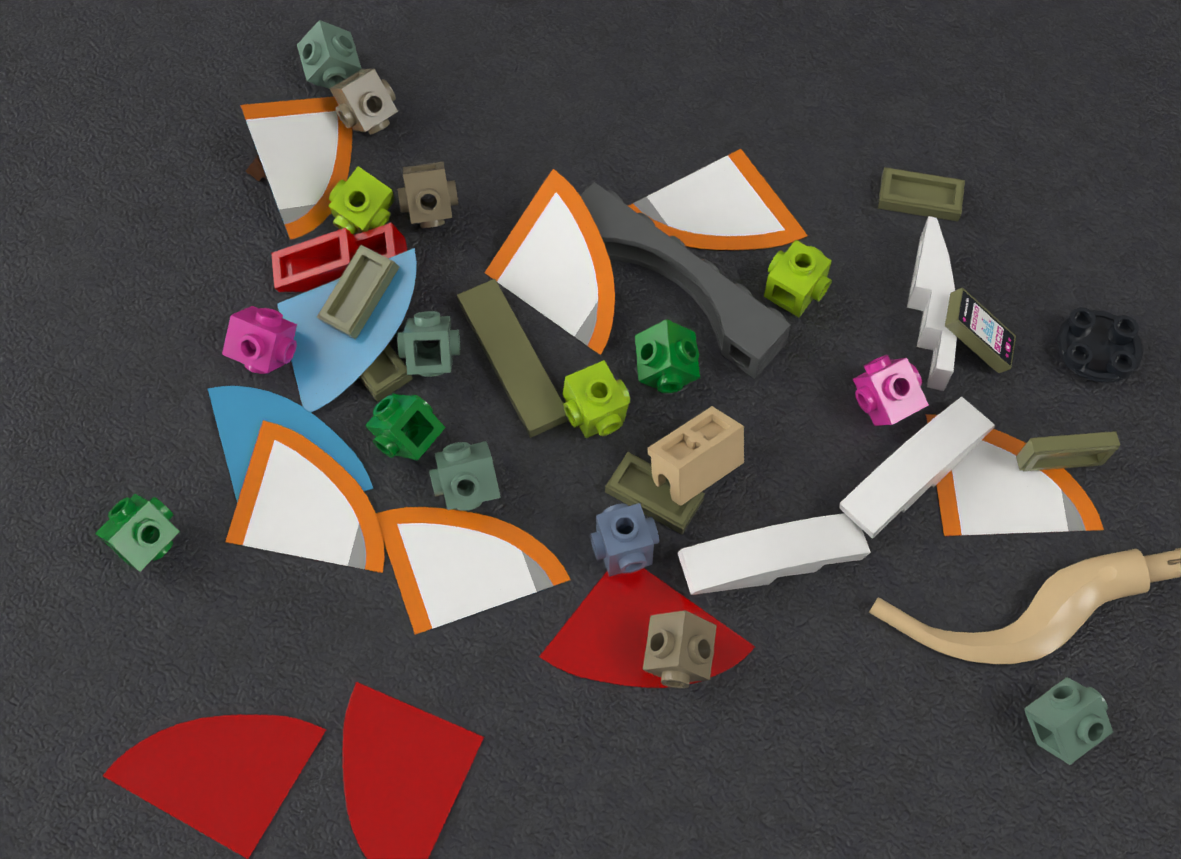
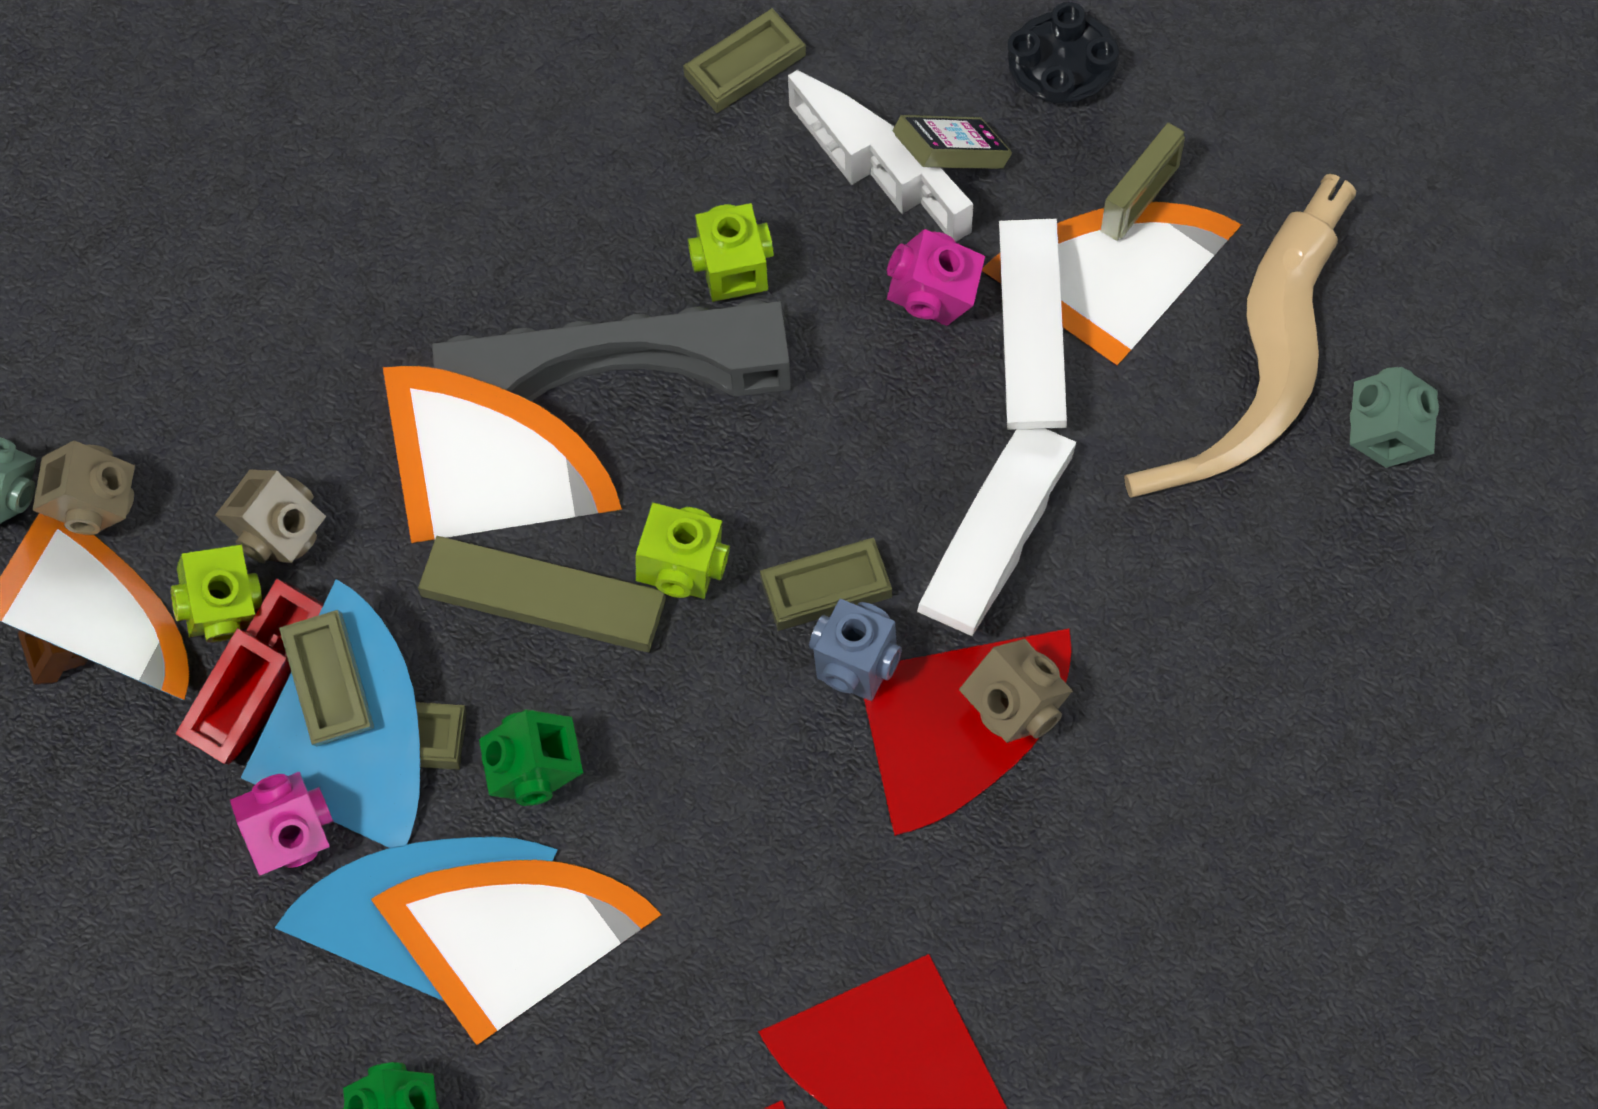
camera: 45 degrees left, 0 degrees up
(425, 357) = (457, 658): sand green brick -> none
(462, 563) = (723, 829): white sticker -> none
(465, 475) = (643, 741): sand green brick -> none
(667, 356) = (698, 445): green brick -> none
(697, 454) = (831, 504): tan hinge -> none
(722, 208) = (570, 253): white sticker -> none

